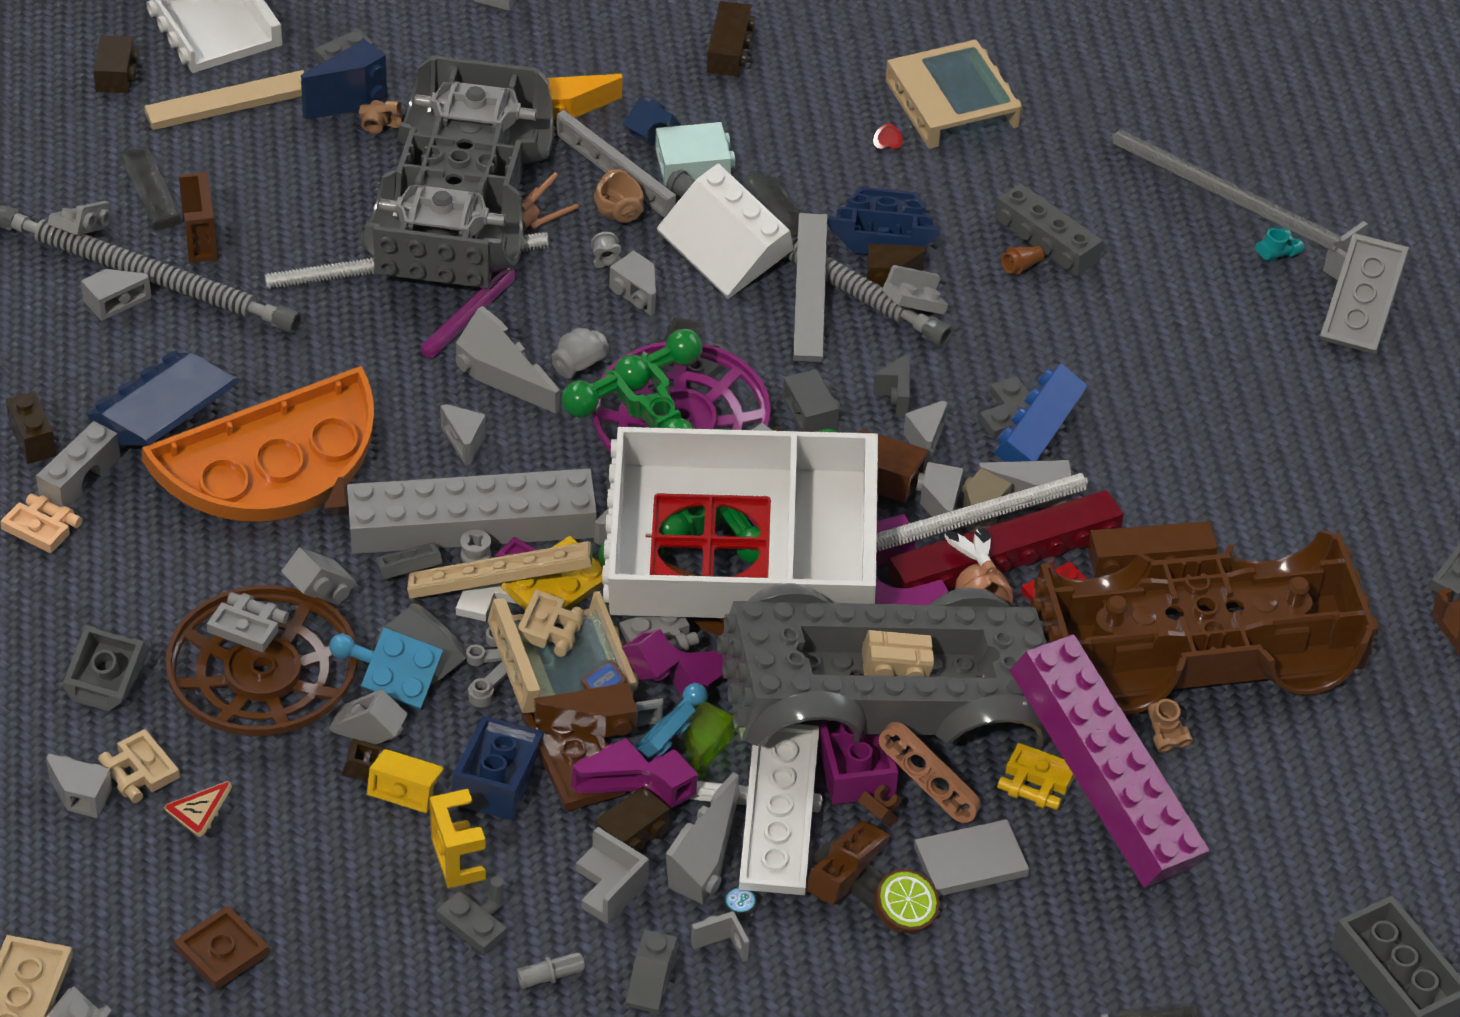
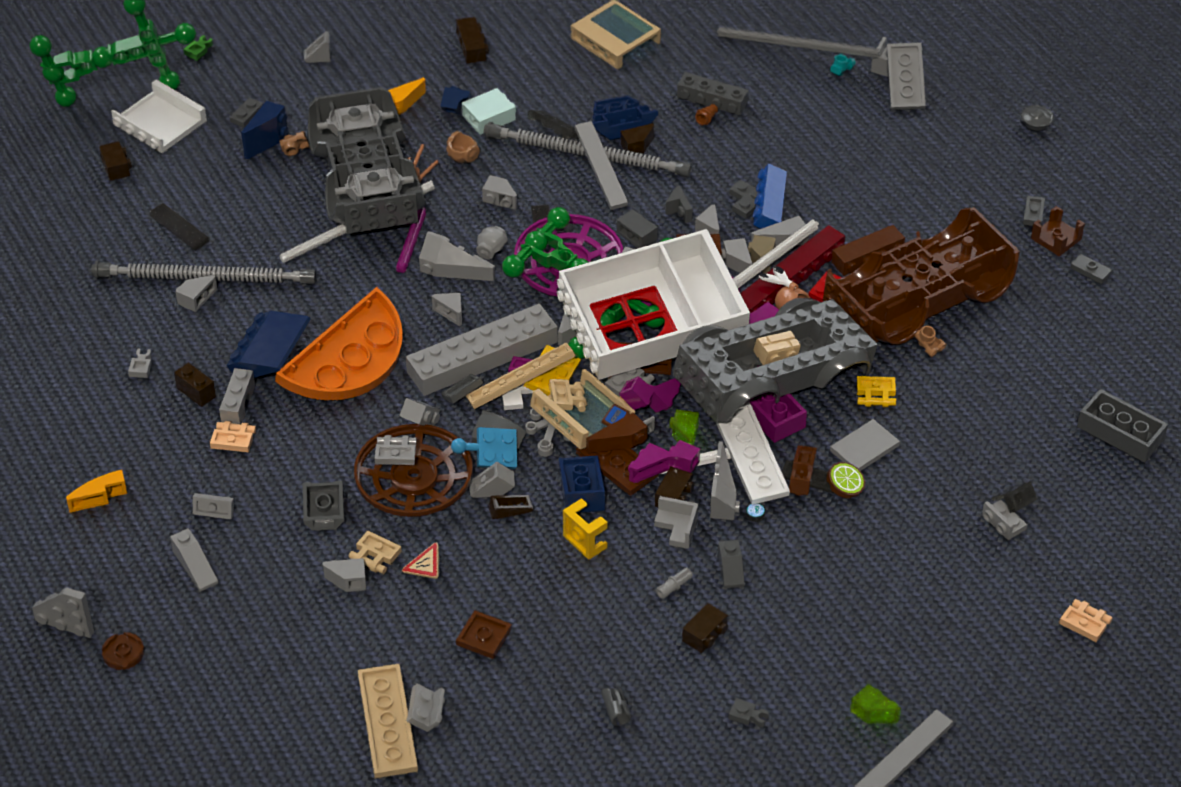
camera: 20 degrees left, 0 degrees up
(82, 218) = (152, 256): light grey bracket -> none
(198, 217) = (230, 237): reddish brown panel -> none
(224, 100) = (194, 162): tan tile -> none
(337, 500) = (402, 367): reddish brown slope -> none
(403, 780) = (533, 509): yellow panel -> none
(475, 546) = (495, 368): light grey wheel -> none
(475, 922) = (615, 572): dark grey plate -> none
(605, 249) = (471, 180): light grey brick -> none
(608, 159) = (445, 129): light grey tile -> none
(659, 736) = (664, 433): dark azure plate -> none
(720, 928) = (758, 526): light grey bracket -> none
(725, 231) = (536, 148): white slope -> none
(879, 807) = (801, 435): reddish brown tile -> none
(888, 136) = (593, 68): red piece -> none
(914, 289) = (660, 148): light grey bracket -> none
(925, 776) = (821, 408): nougat beam -> none
(1109, 760) = (918, 366): magenta brick -> none

